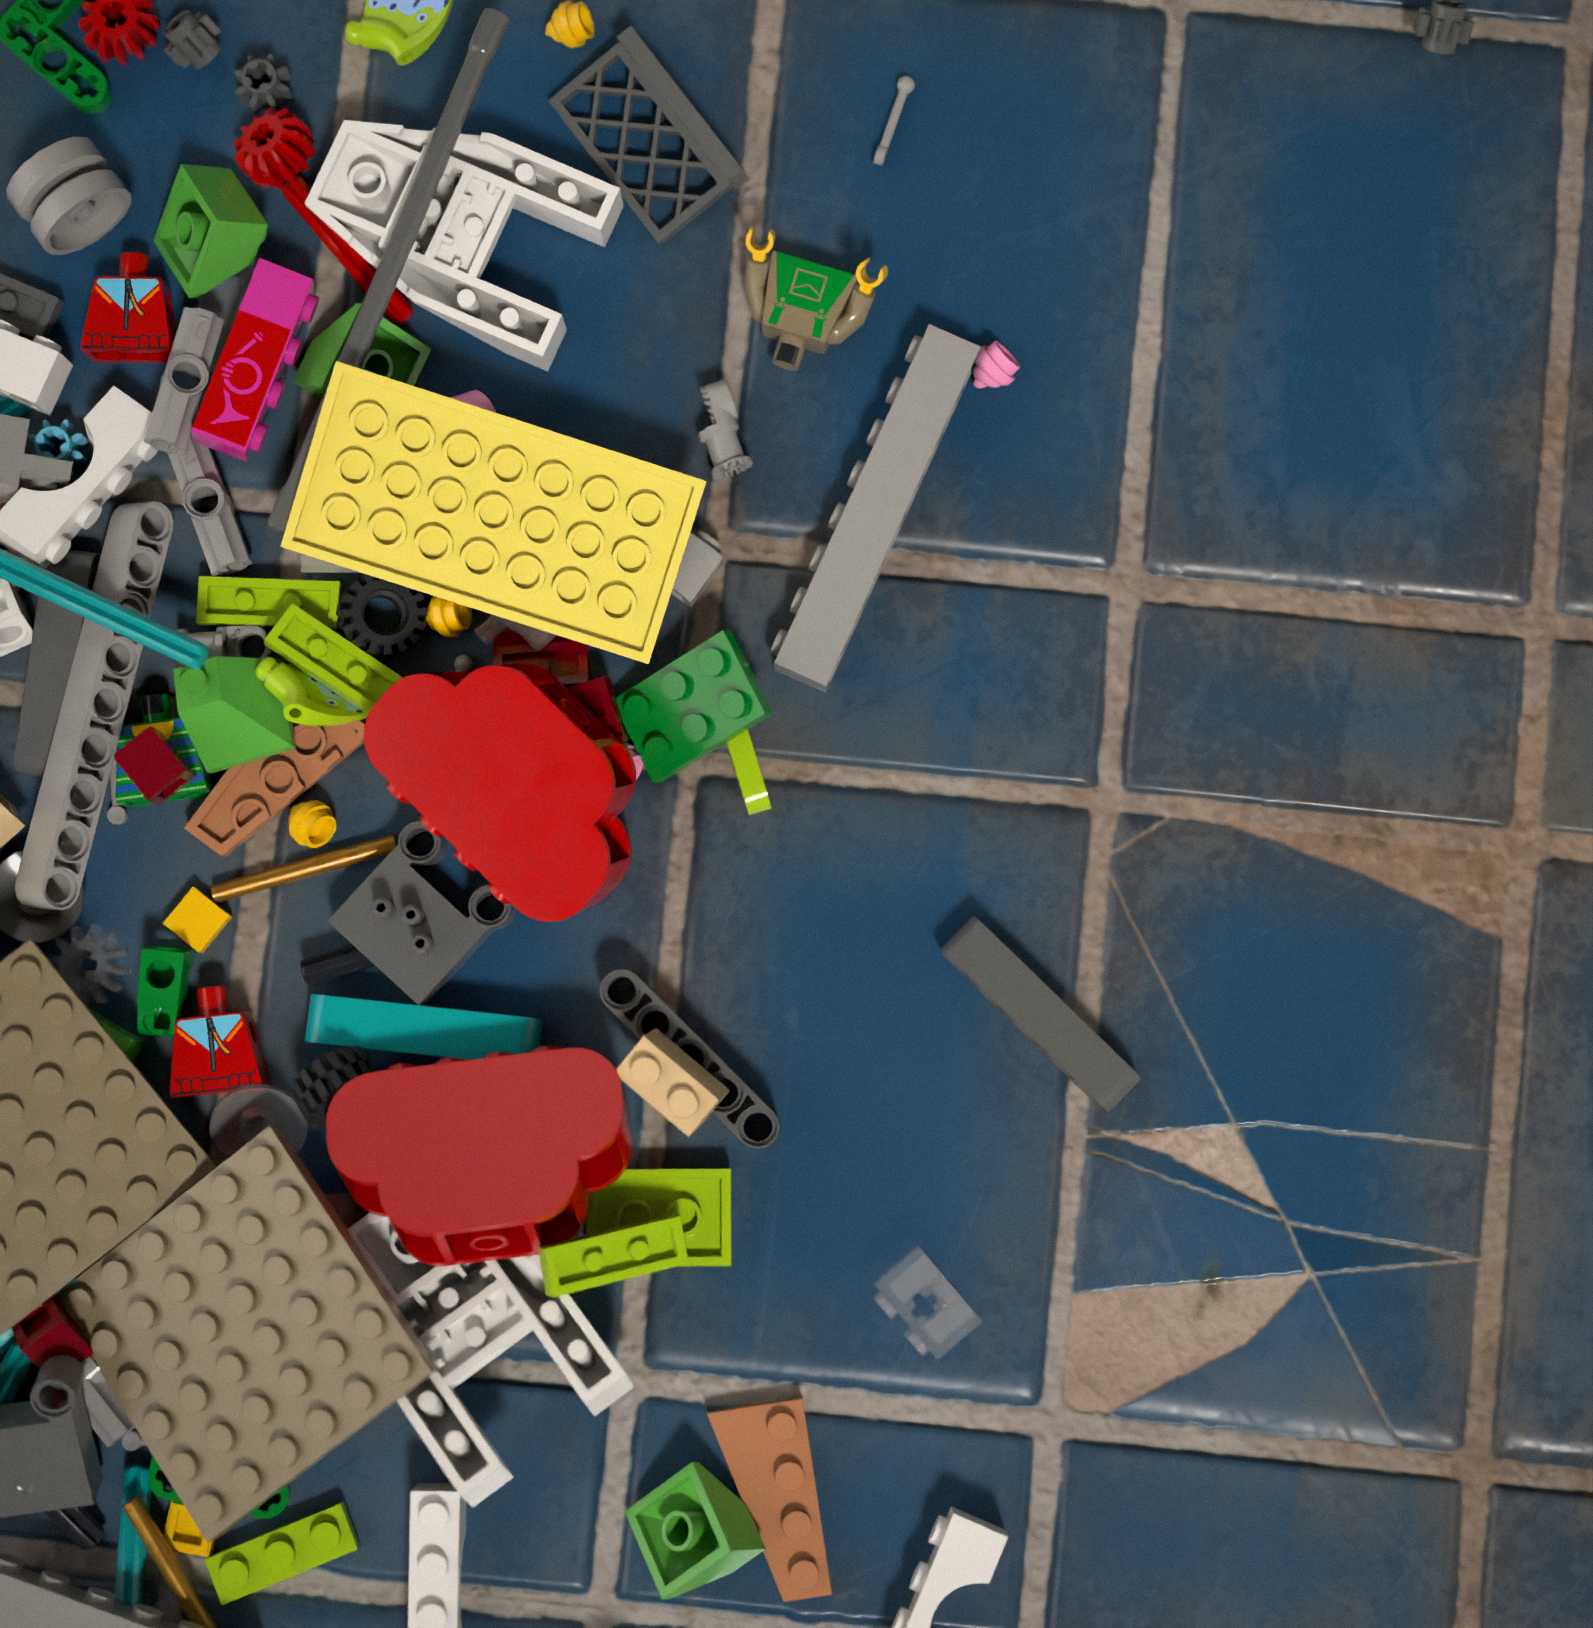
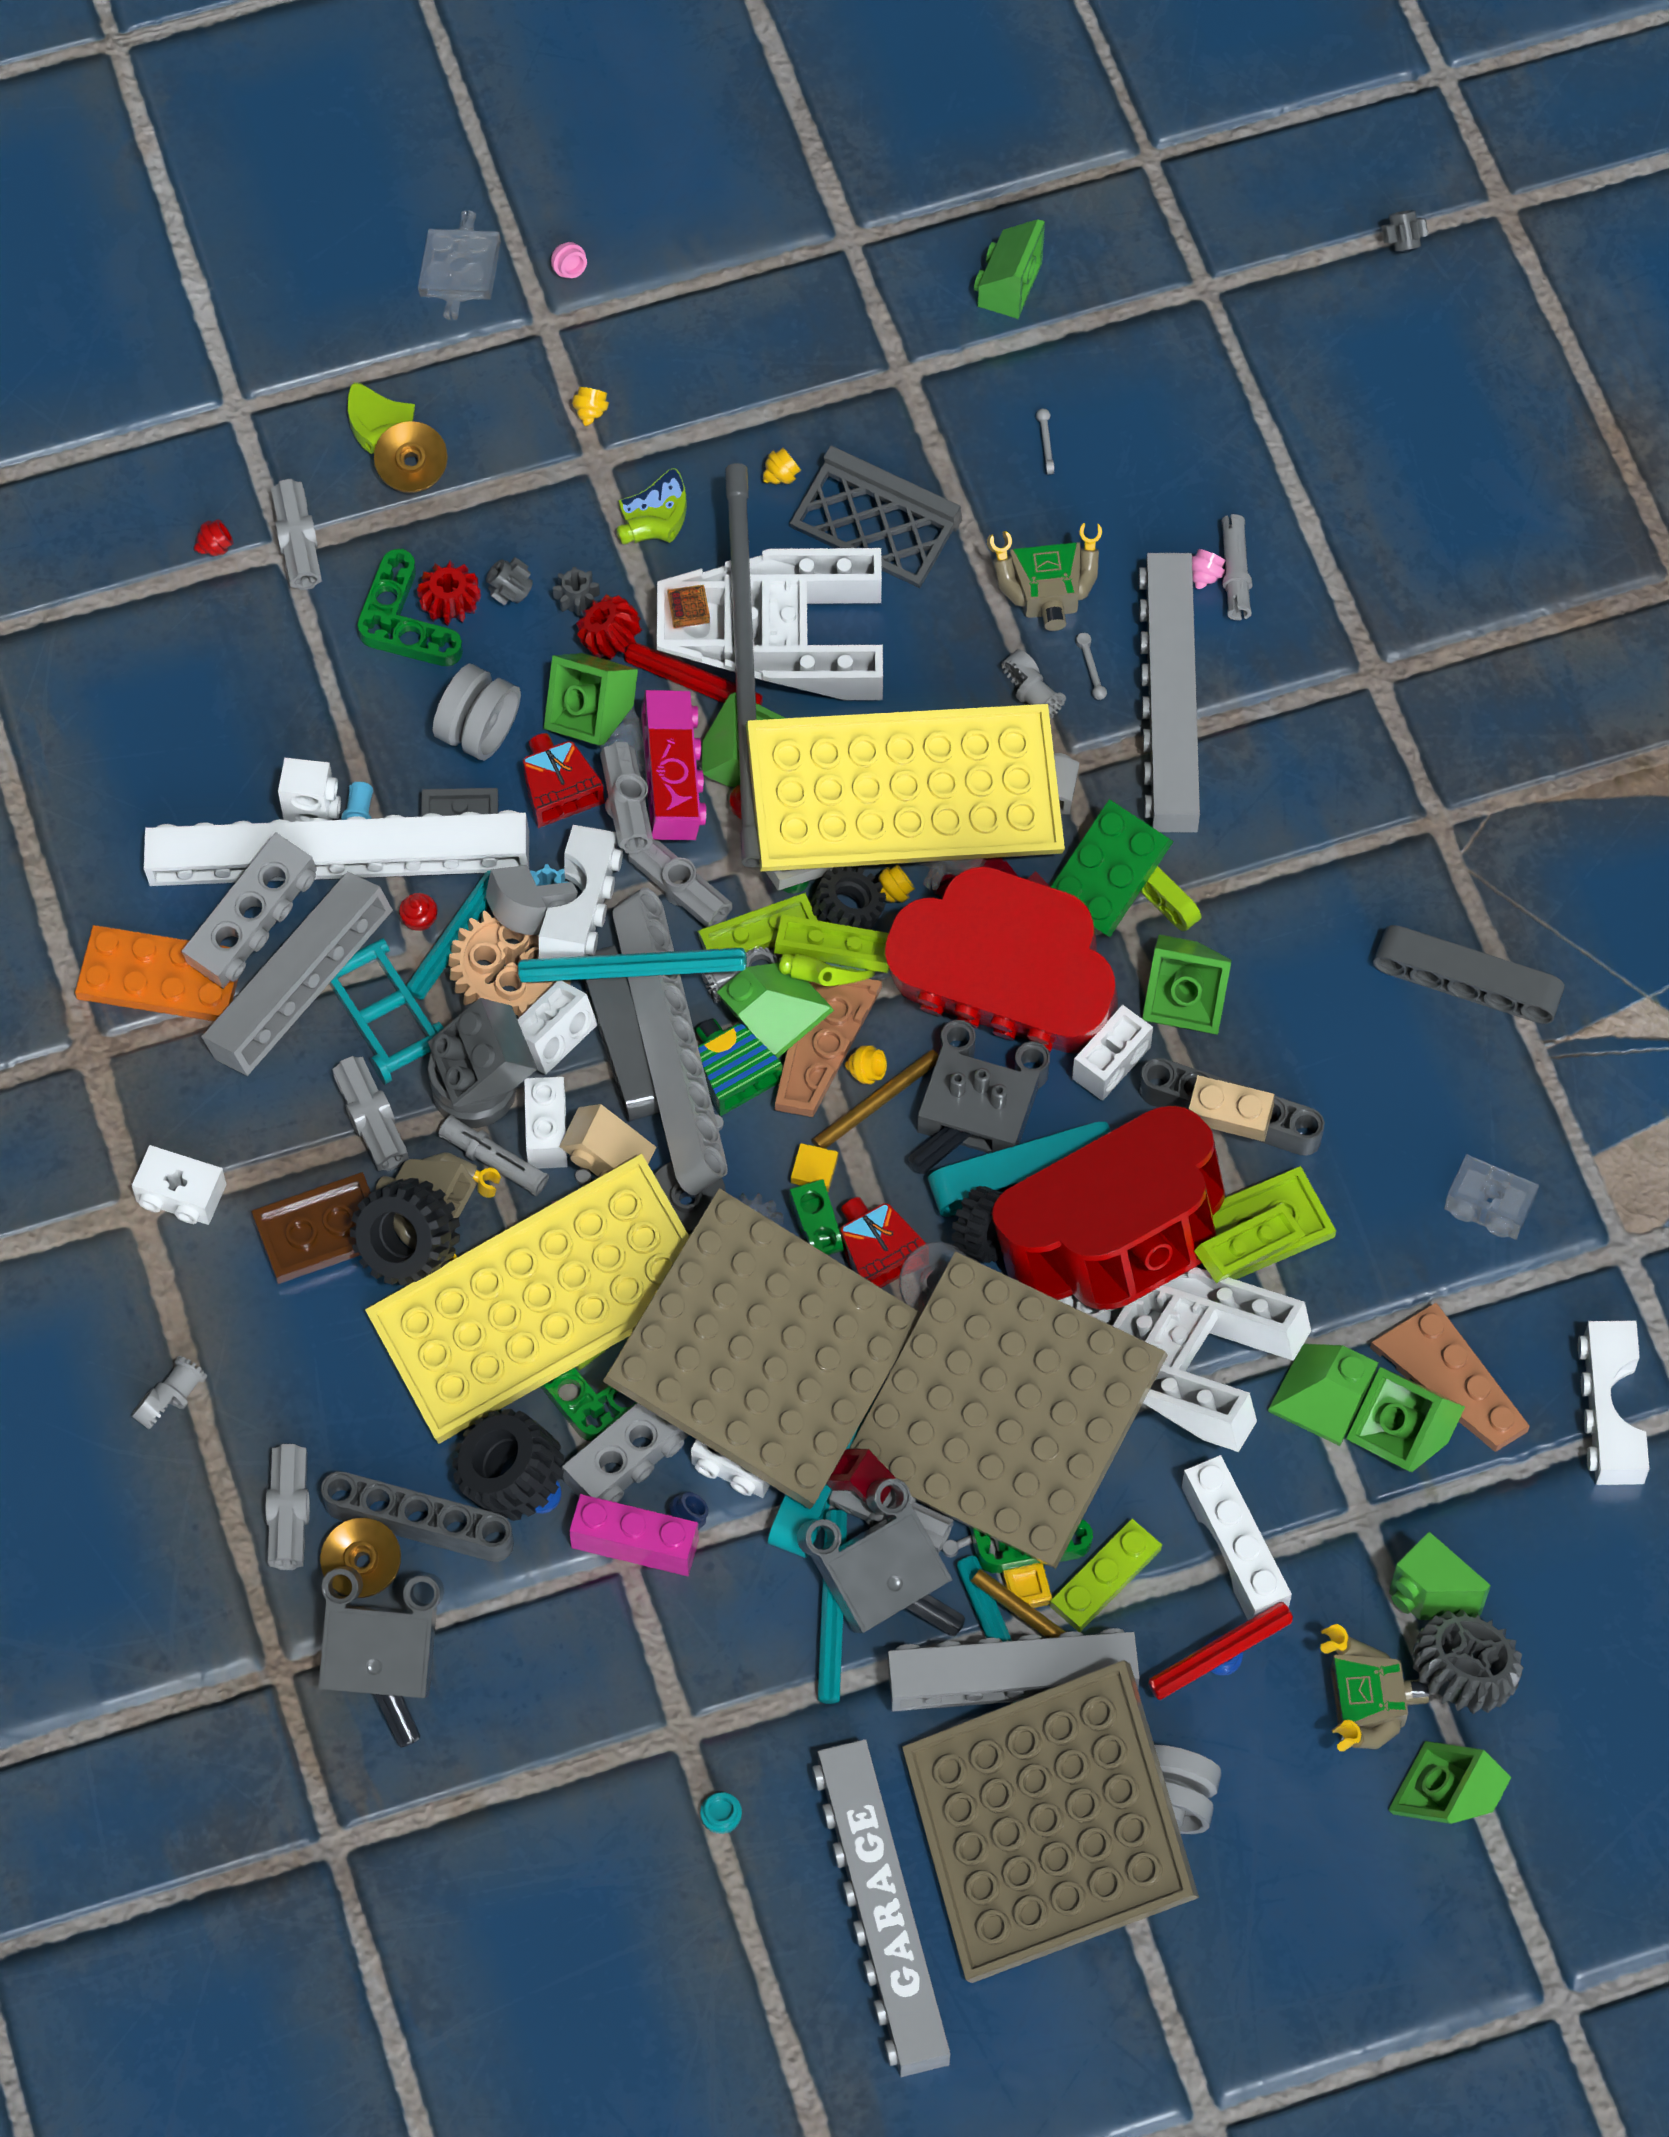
camera: 25 degrees left, 20 degrees down
(154, 765) = (742, 1051): dark red panel -> none
(360, 169) = (688, 606): none -> clear orange tile
(584, 938) = (1112, 1052): none -> white brick
(626, 1448) = (1325, 1390): none -> bright green slope
(711, 884) = (1186, 985): none -> bright green slope
(812, 397) = (1084, 641): none -> light grey hinge
(1023, 396) = (1237, 580): none -> light grey pin

